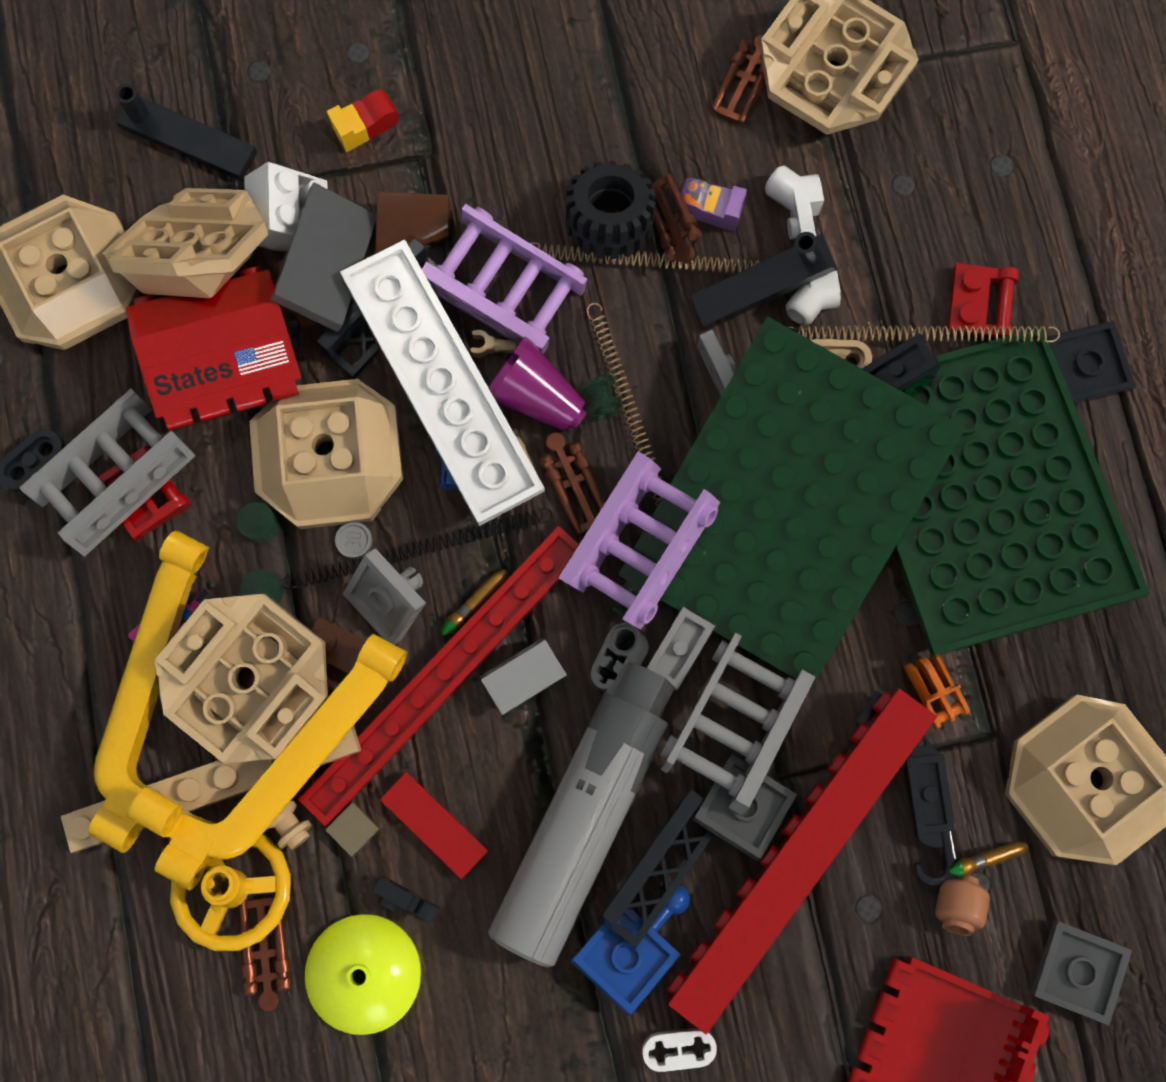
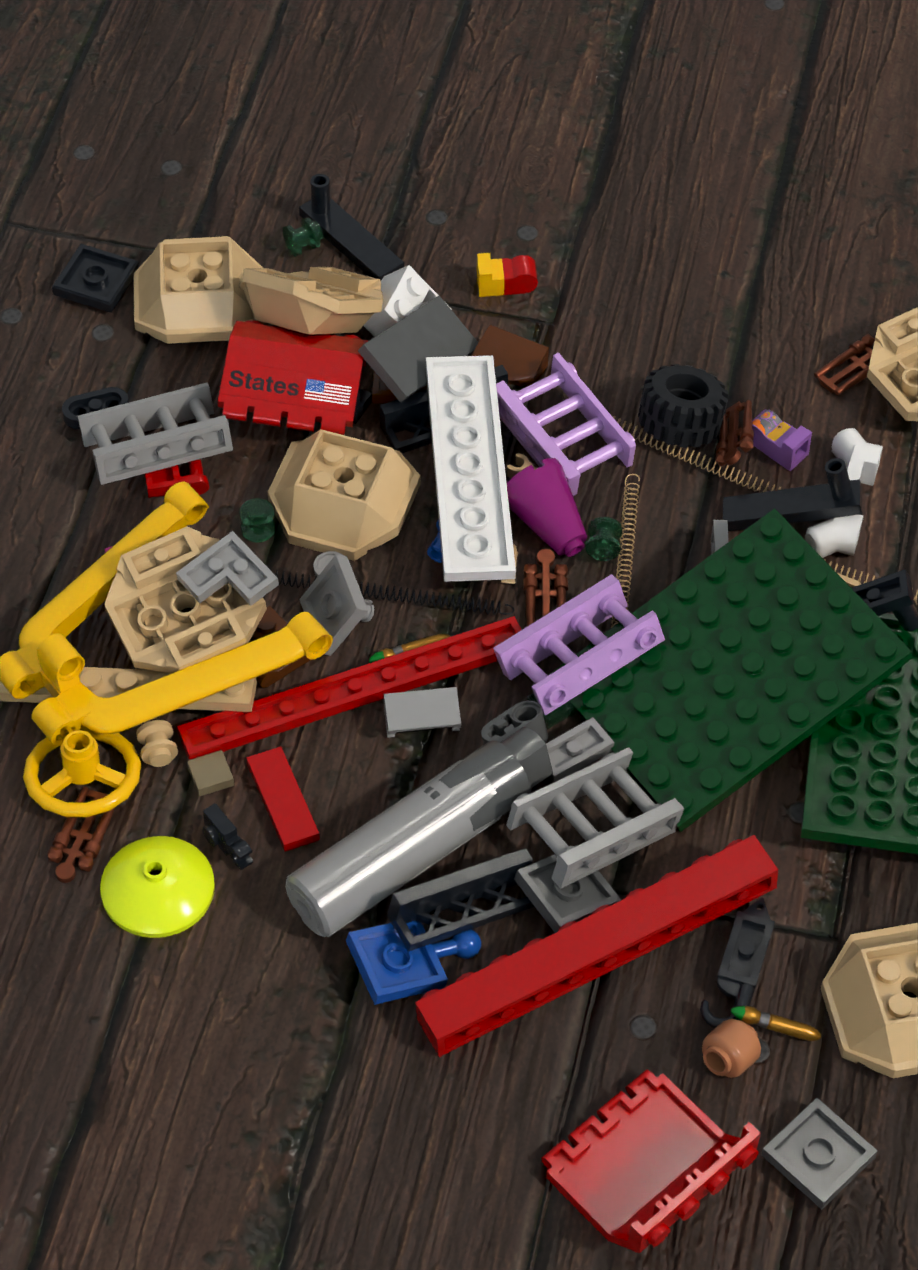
camera: 25 degrees right, 25 degrees down
(140, 154) = (308, 234): none -> clear green wheel
(267, 622) = (227, 562): none -> light grey plate
(678, 1060) = (406, 1058): white beam -> none
(934, 682) = (795, 879): orange arm -> none

